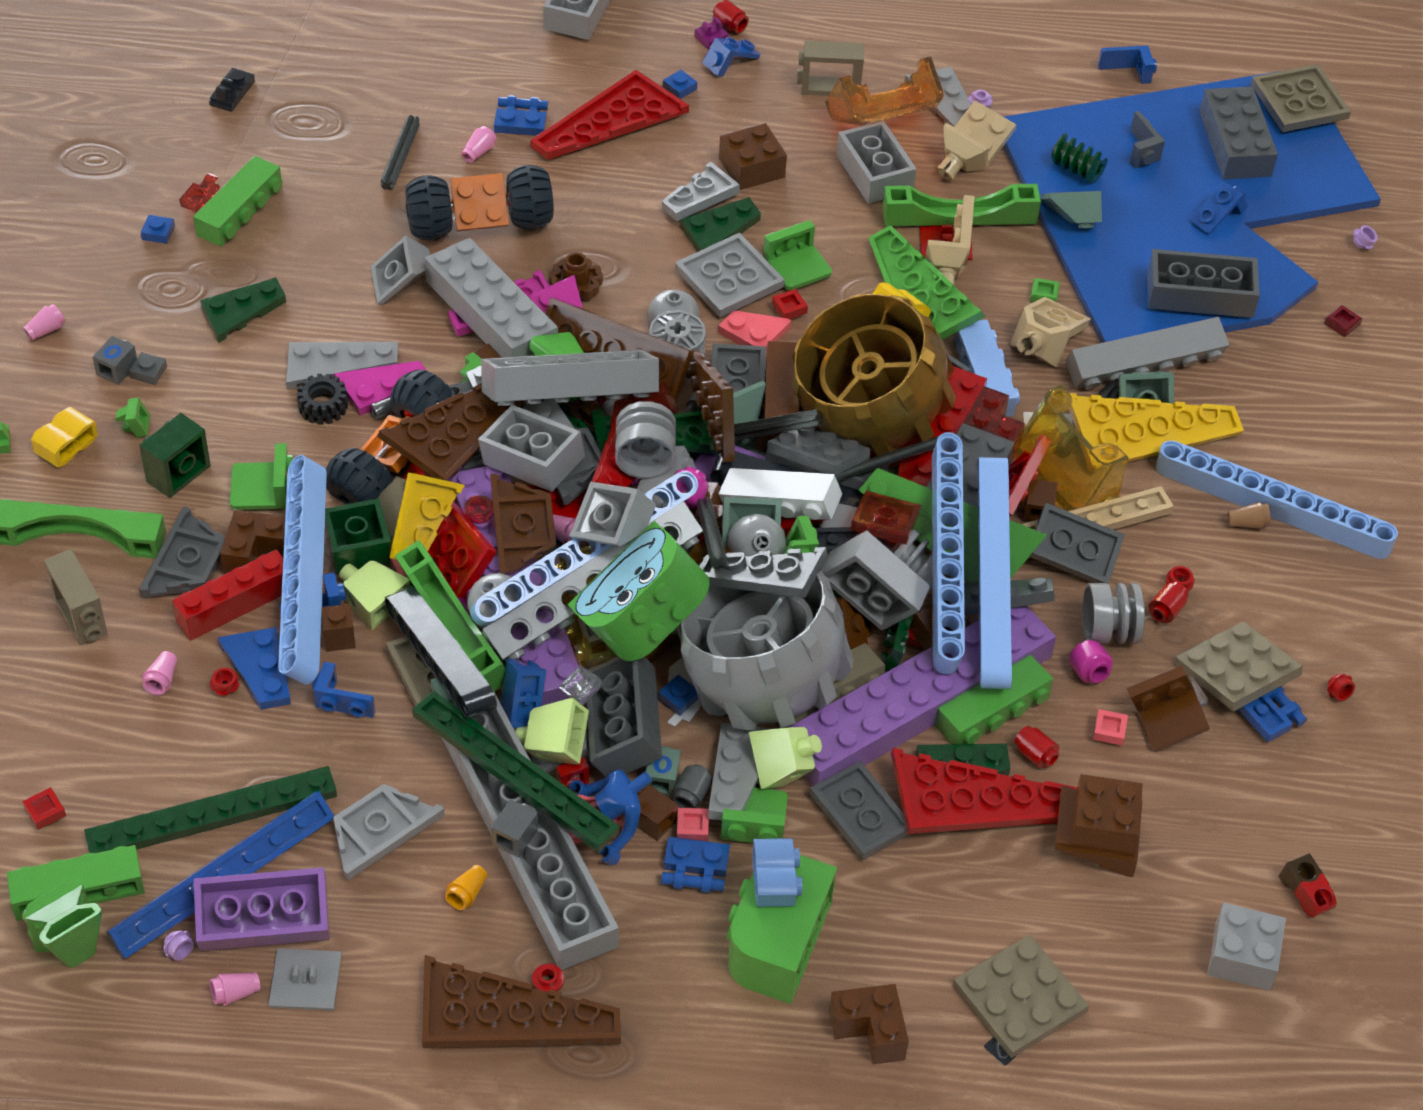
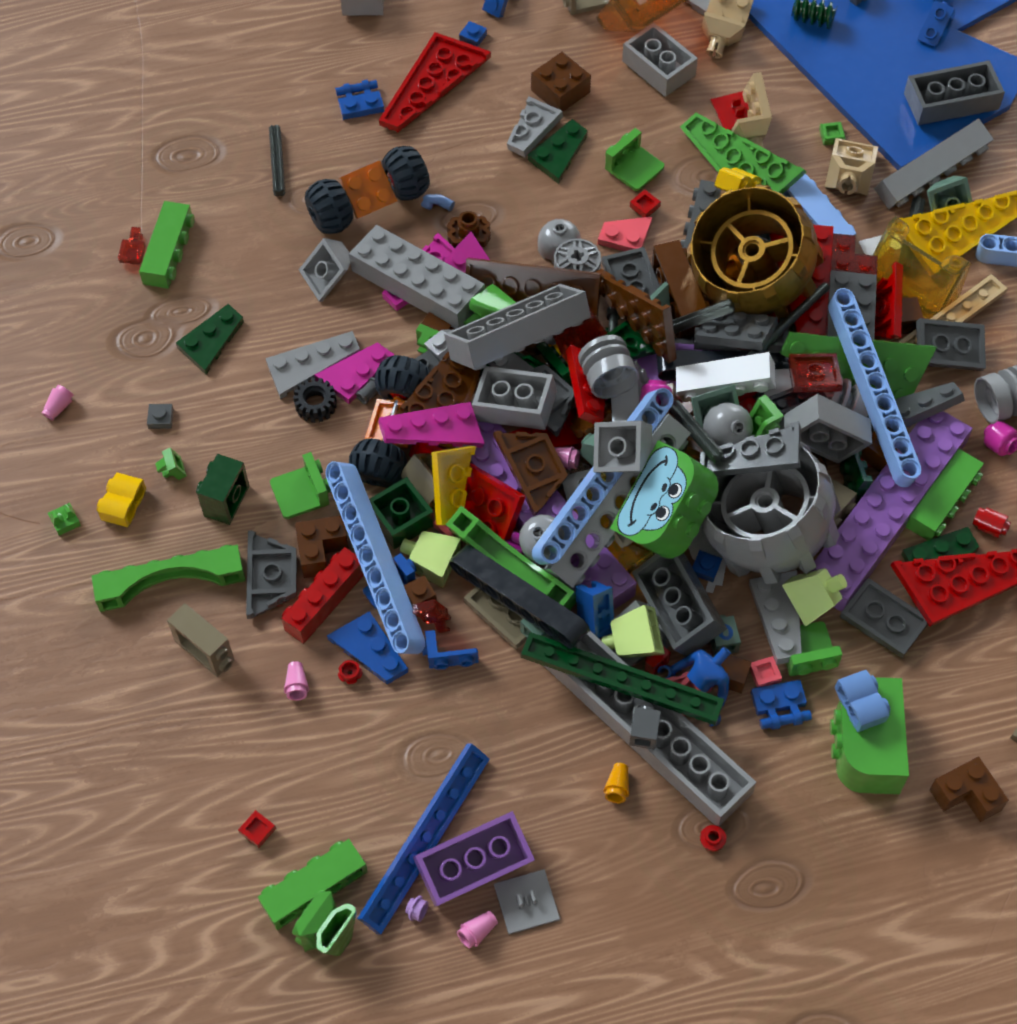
camera: 15 degrees left, 10 degrees up
(114, 360) = (131, 418): dark grey brick -> none
(157, 229) = (110, 289): blue plate -> none
(211, 812) = (388, 788): dark green plate -> none
(232, 89) = (113, 144): black plate -> none
(341, 644) = (433, 612): none -> clear red plate
(379, 826) = (527, 754): light grey wing -> none
(440, 453) = (442, 425): none -> dark pink wing
(479, 509) = (491, 461): clear red tile -> none
(480, 142) = (338, 134): bright pink cone -> none
(498, 1011) = (689, 878): reddish brown wing -> none
(557, 237) = (438, 199): none -> medium blue arm
(581, 685) = (638, 588): clear plate -> none
(692, 786) = (752, 641): dark grey brick -> none
(729, 274) = (587, 192): light grey plate -> none
(914, 208) = (705, 91): bright green arch -> none
(994, 574) = (914, 393): light blue beam -> none
(1076, 206) = (830, 53): sand green slope -> none

